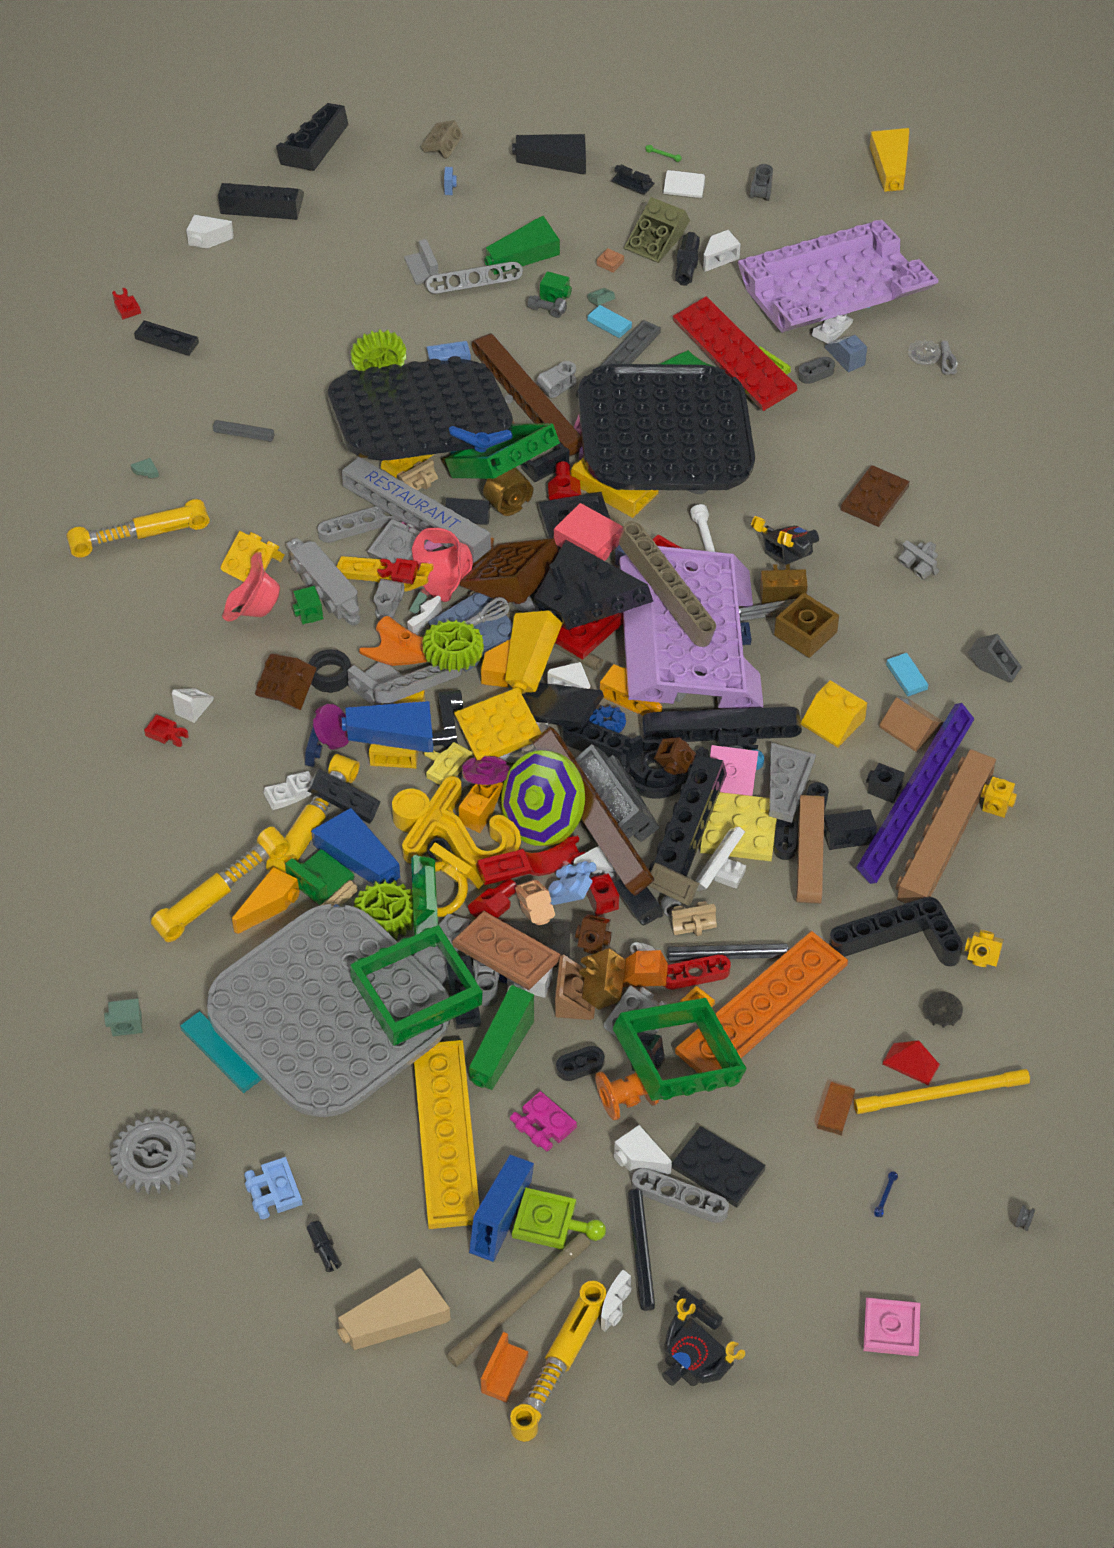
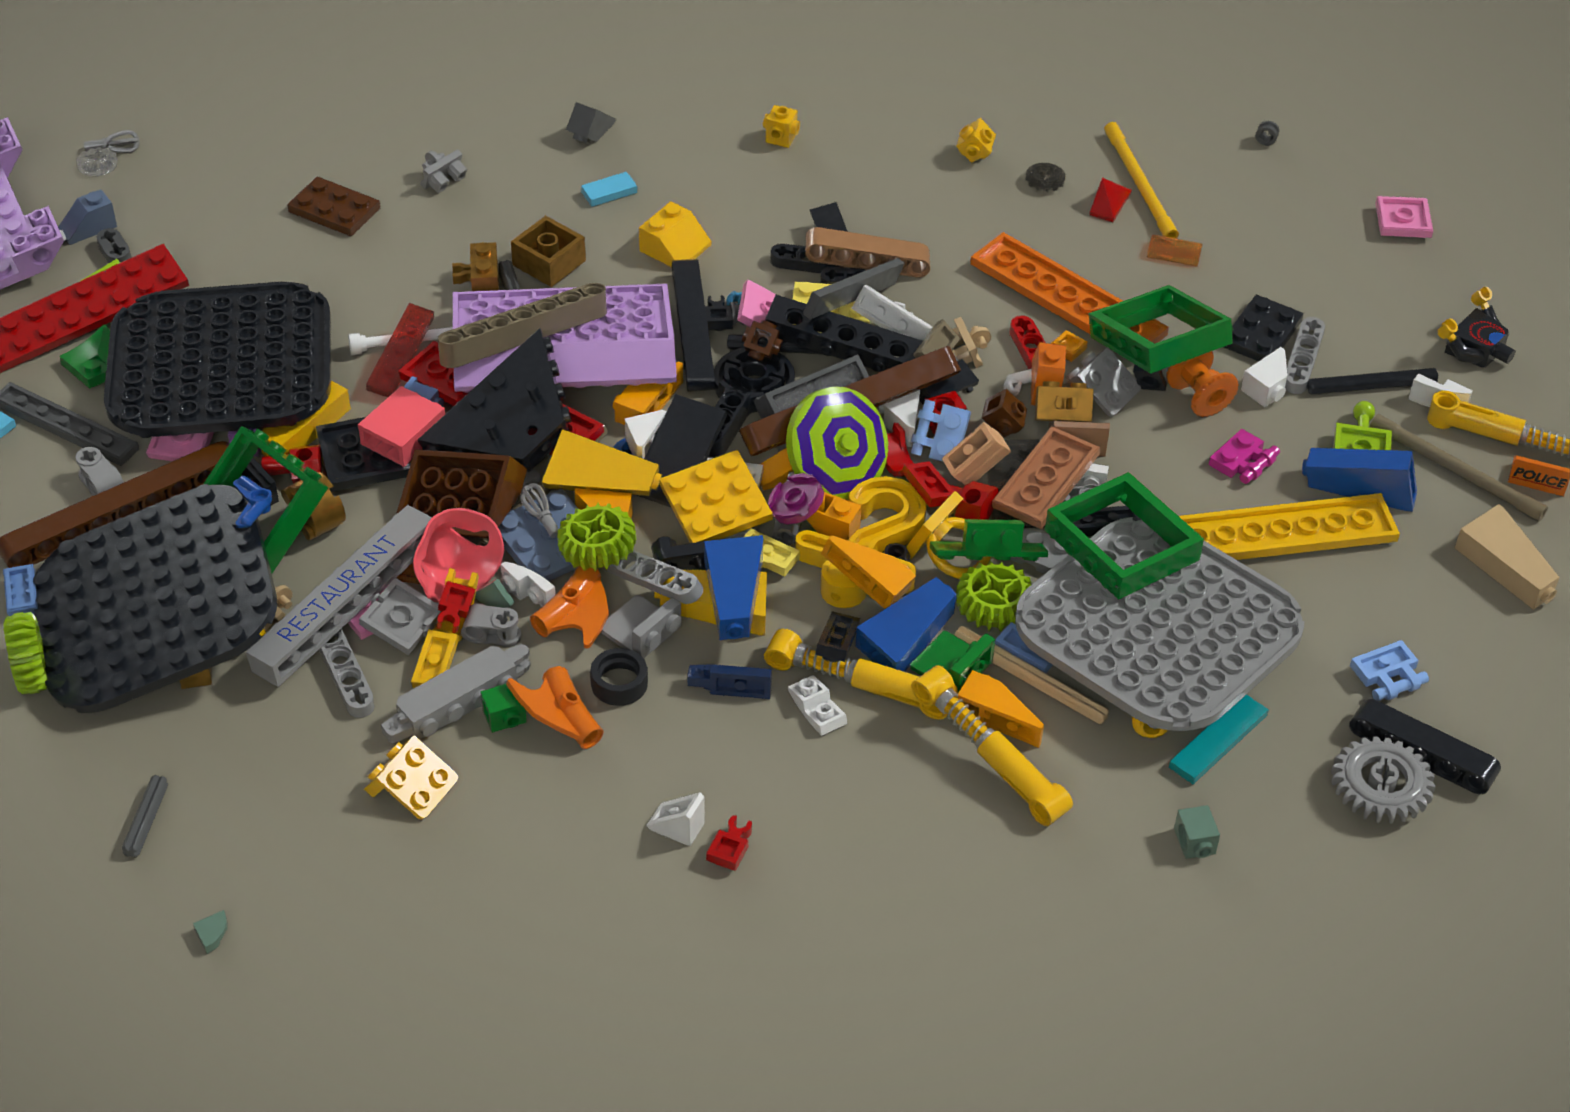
camera: 95 degrees left, 5 degrees down
(186, 1197) = (1445, 754): none -> black beam
(191, 515) = (344, 917): yellow piece -> none
(255, 594) = (501, 743): coral piece -> none
(285, 680) = (646, 716): reddish brown bracket -> none
(300, 624) = (559, 706): none -> orange pin
(323, 1245) = (1448, 621): black axle -> none
(329, 726) = (723, 658): magenta tile -> none
(396, 816) = (874, 572): none -> light orange slope
(475, 510) = (337, 546): black hinge -> none
(503, 1038) = (1169, 481): green slope -> none
(579, 1063) = (1168, 427): black plate -> none
(688, 536) = (400, 350): none -> clear red plate
(702, 1311) = (1426, 340): black axle -> none
(734, 951) = (1001, 323): black axle -> none
(737, 818) = (848, 289): none -> dark grey tile
(786, 543) = (420, 262): black torso -> none
(788, 779) = (774, 270): light grey wing -> none
(885, 782) = (767, 202): black brick -> none
(892, 1176) = (1241, 215): clear blue hinge -> none
(897, 927) = (943, 187): black beam -> none
(910, 723) = (682, 184): medium nougat slope -> none
(915, 793) = (766, 180): dark purple plate -> none
(947, 827) = (824, 163): medium nougat brick -> none

